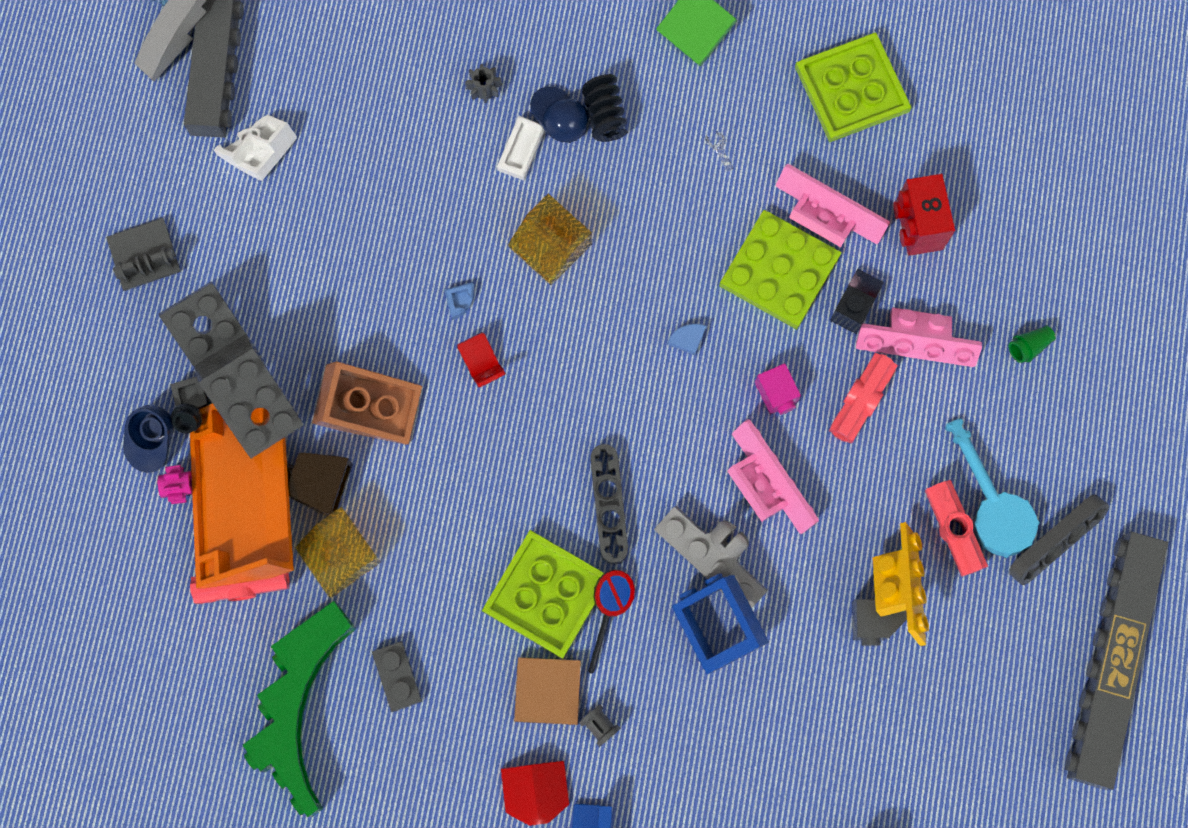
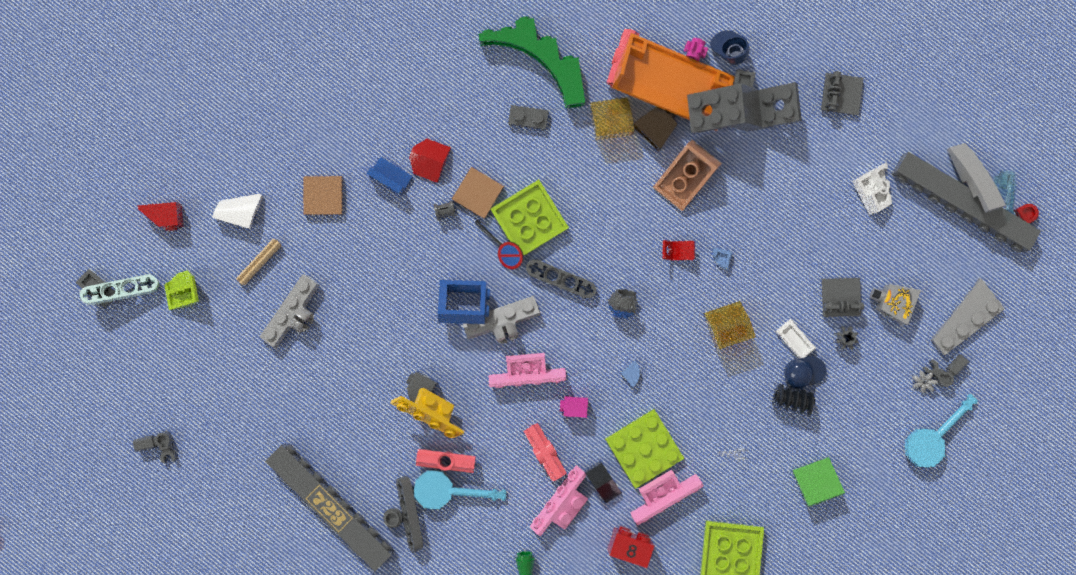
camera: 115 degrees right, 10 degrees up
(186, 418) = (730, 72): black plate -> none
(401, 44) = (896, 302): none -> light grey torso
(431, 116) = (841, 297): none -> dark grey hinge
(597, 397) = (623, 303): none -> dark grey piece
(1077, 561) = (393, 518): none -> dark grey plate

